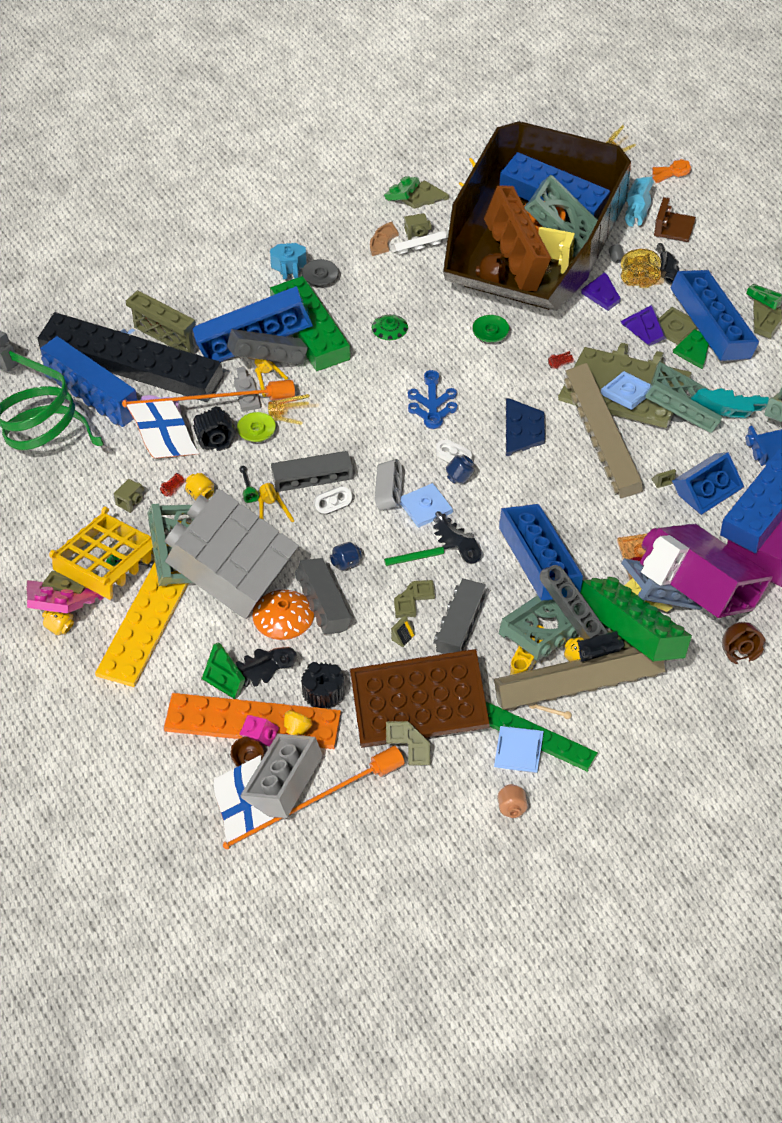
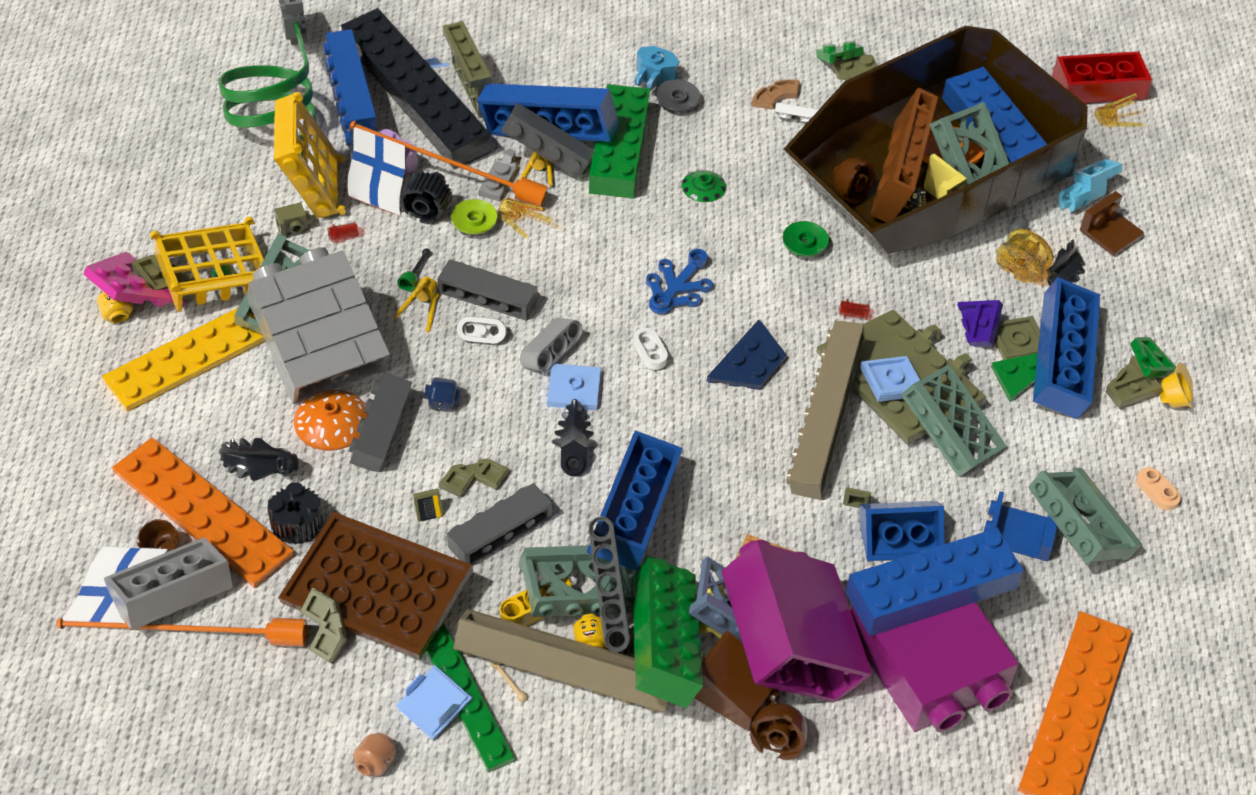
camera: 30 degrees right, 0 degrees up
(113, 441) = (318, 186): none -> yellow window
(198, 485) = (365, 247): yellow head -> none
(223, 672) = (212, 444): green wing -> none
(259, 730) = (189, 523): dark pink bracket -> none
(296, 723) = (228, 536): yellow cone -> none
(414, 556) = (514, 433): green bar -> none
(416, 225) = (818, 94): olive brick -> none
(460, 469) = (638, 367): dark blue head -> none
(593, 119) = (1103, 76): none -> red brick
(599, 646) = (603, 638): black hinge -> none
(602, 292) = (965, 261): dark purple wing -> none
(664, 560) = (737, 582): white brick -> none
(677, 168) = (1168, 172): orange piece -> none
(699, 623) = (730, 684): none -> reddish brown slope
(726, 404) = (991, 450): teal slope -> none

